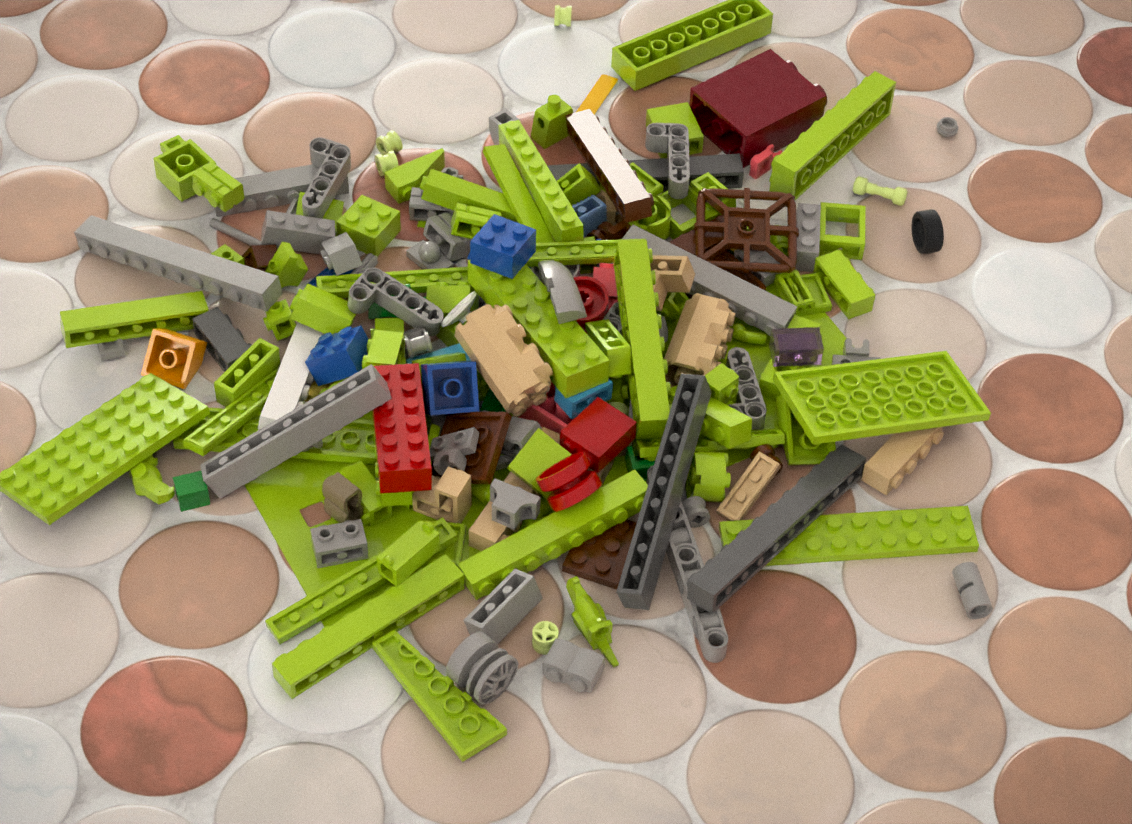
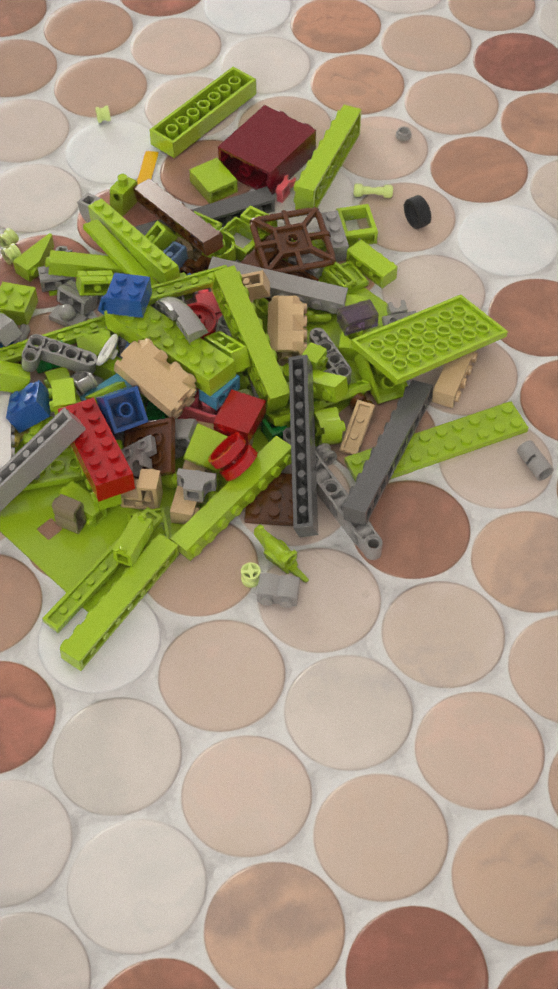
camera: 15 degrees left, 5 degrees up
(339, 543) = (76, 546): light grey brick -> none
(450, 710) = (203, 648): lime wing -> none
(482, 667) = (215, 609): light grey wheel -> none
(505, 606) = (214, 562): light grey brick -> none
(673, 140) = (220, 189): light grey beam -> none

